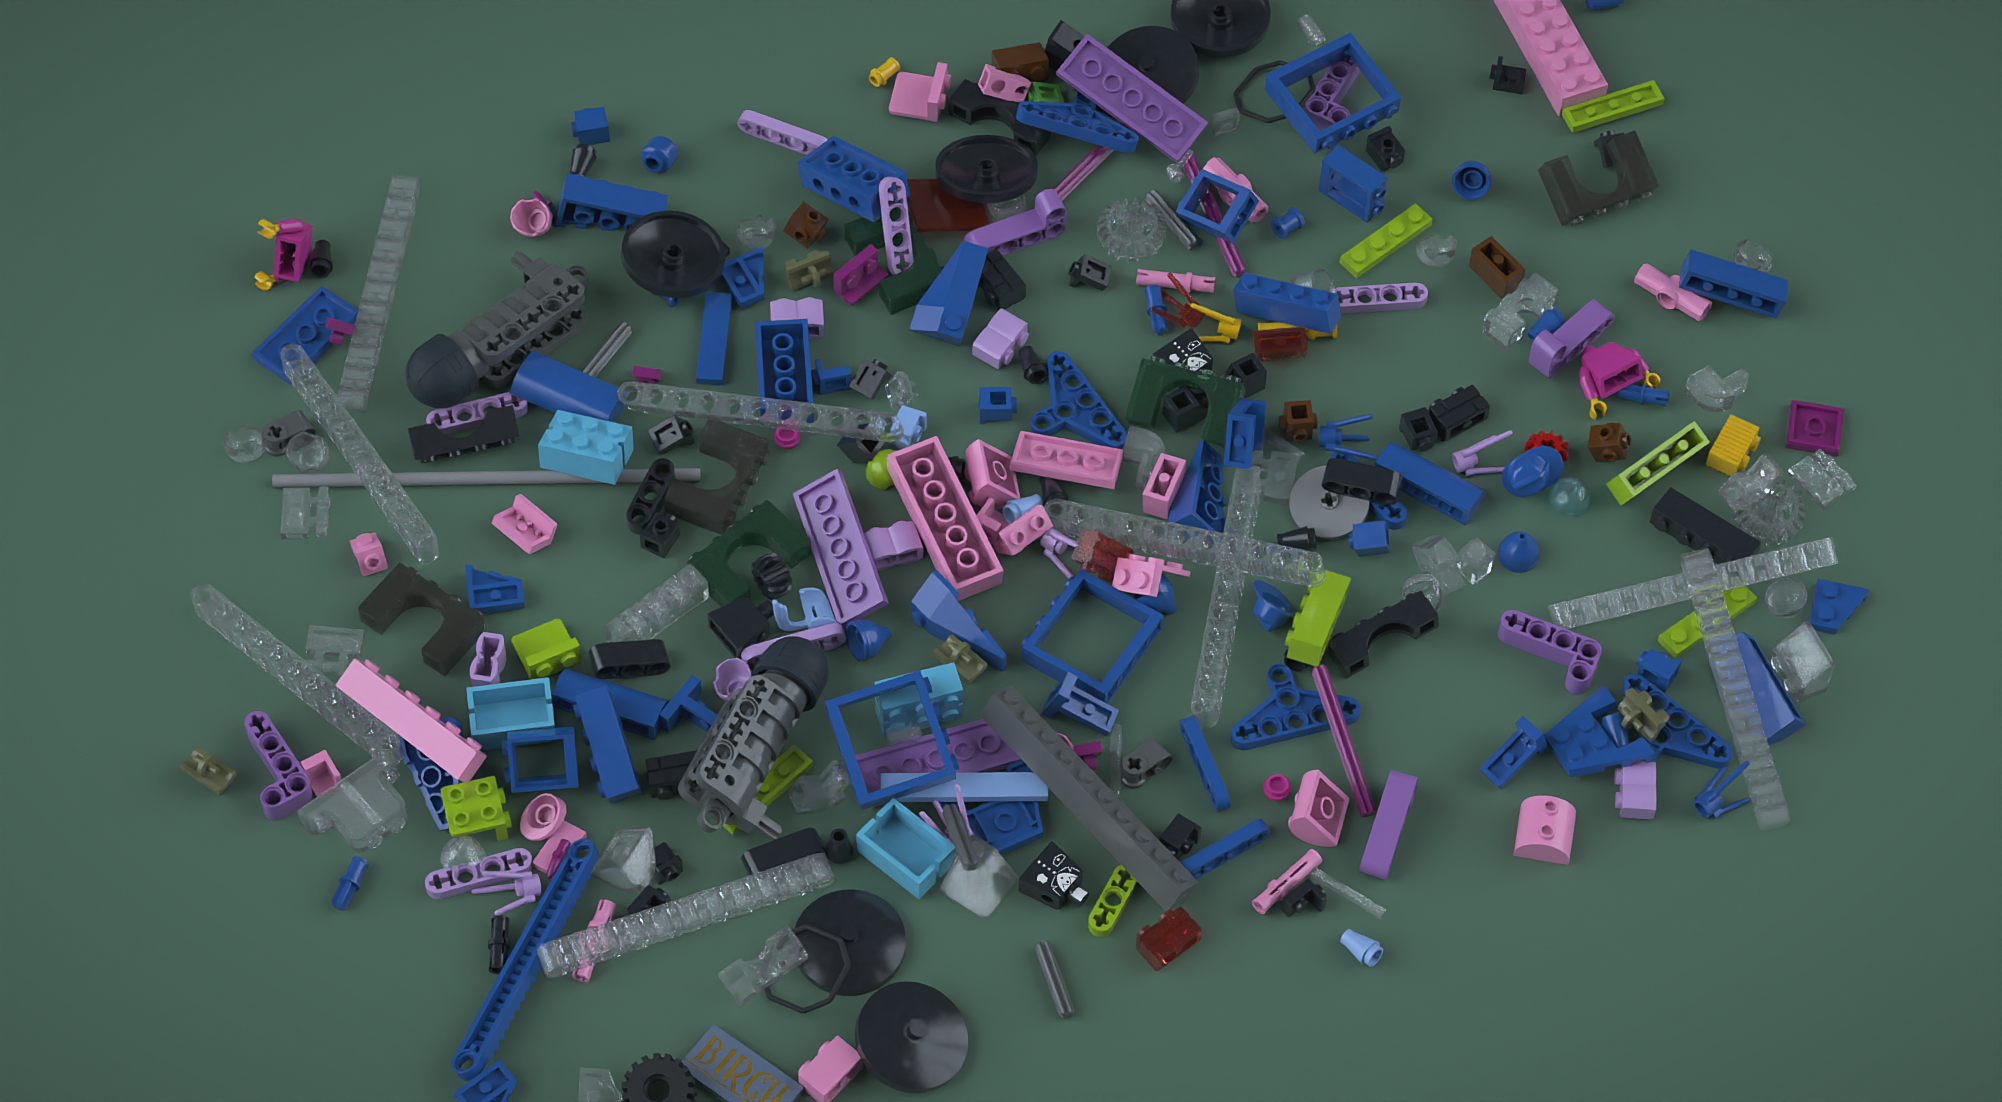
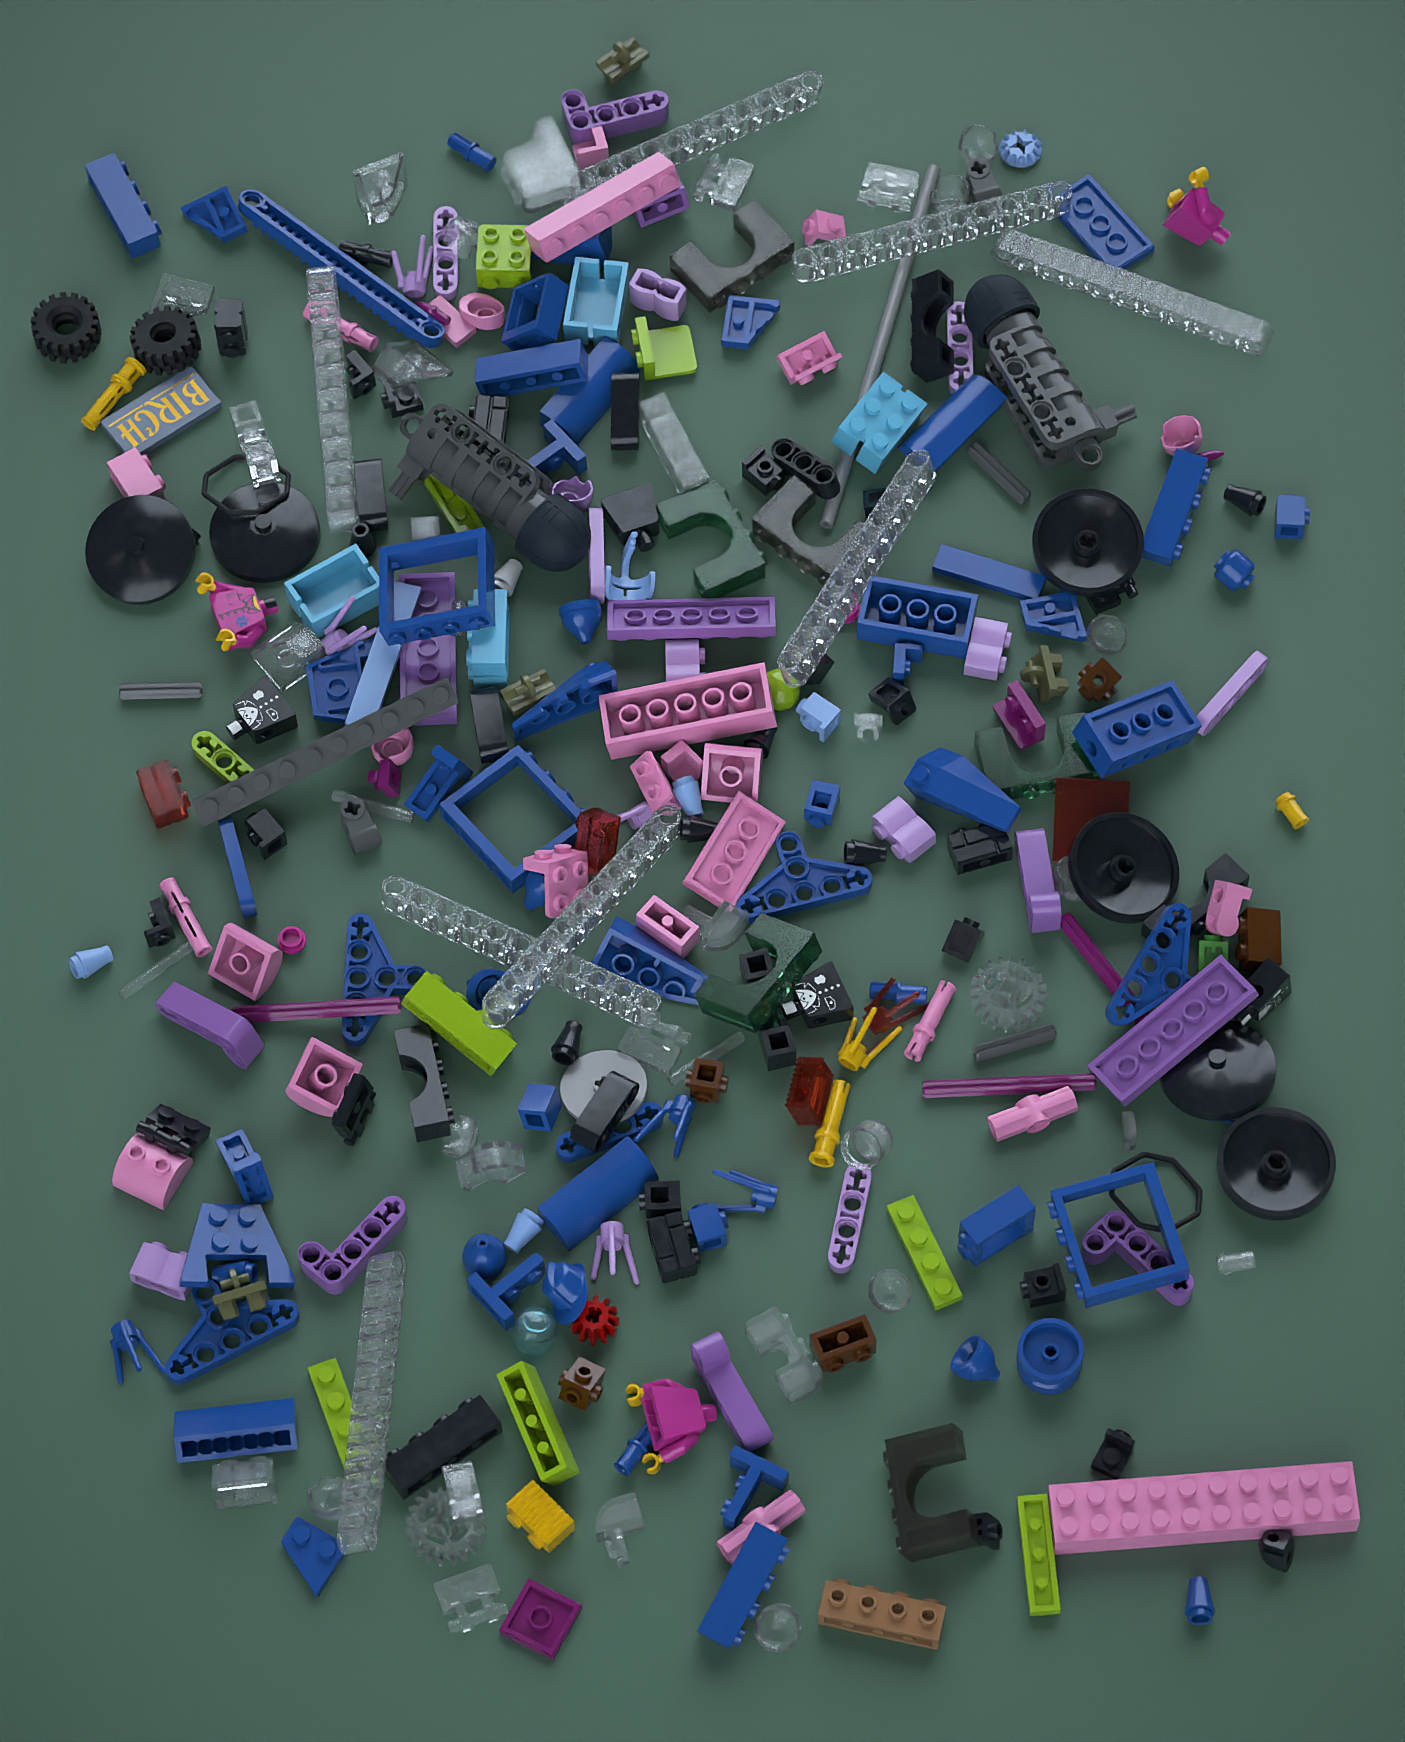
camera: 110 degrees right, 5 degrees up
(222, 422) = (1013, 155): none -> light blue gear
(320, 261) = (1187, 250): black cone -> none
(339, 329) = (1088, 242): magenta tile -> none
(425, 943) = (381, 187): none -> clear slope
(633, 1028) = (230, 327): none -> black brick
(647, 374) = (957, 500): magenta tile -> none
(771, 576) = (677, 550): black gear -> none
(850, 714) = (508, 576): none -> white cone
(892, 227) = (1057, 747): lavender beam -> none
(920, 94) = (1250, 835): bright pink bracket -> none
(956, 929) = (236, 612): none -> dark pink torso
(960, 837) = (315, 626): dark grey axle -> none
(1020, 675) = (488, 723): none -> black beam
(1174, 170) = (1076, 1062): clear hand -> none
(1204, 763) = (336, 880): blue beam -> none
(1236, 215) = (995, 1098): blue window -> none
(1244, 432) = (698, 1005): blue panel -> none
(1287, 222) = (972, 1154): blue bush -> none
(1287, 303) = (853, 1107): blue brick -> none
(1383, 362) = (763, 1193): none -> blue plant
(1412, 709) = (321, 1078): none -> bright pink brick
(1428, 389) = (708, 1226): none -> blue brick
(1431, 677) = (354, 1108): none -> black plate
(1448, 127) = (1050, 1356): none -> blue wheel
(1475, 560) = (482, 1202): clear brick -> none
(1486, 526) = (523, 1230): none -> light blue cone
(1498, 821) = (173, 1130): none -> black plate
(1544, 522) = (507, 1289): none -> blue bracket
(1550, 320) = (757, 1378): blue cone -> none
(1645, 308) = (756, 1471): none -> blue bracket
(1658, 668) = (294, 1339): blue brick -> none
(1708, 194) = (882, 1614): none -> medium nougat brick
(1734, 689) = (233, 1390): clear beam -> none

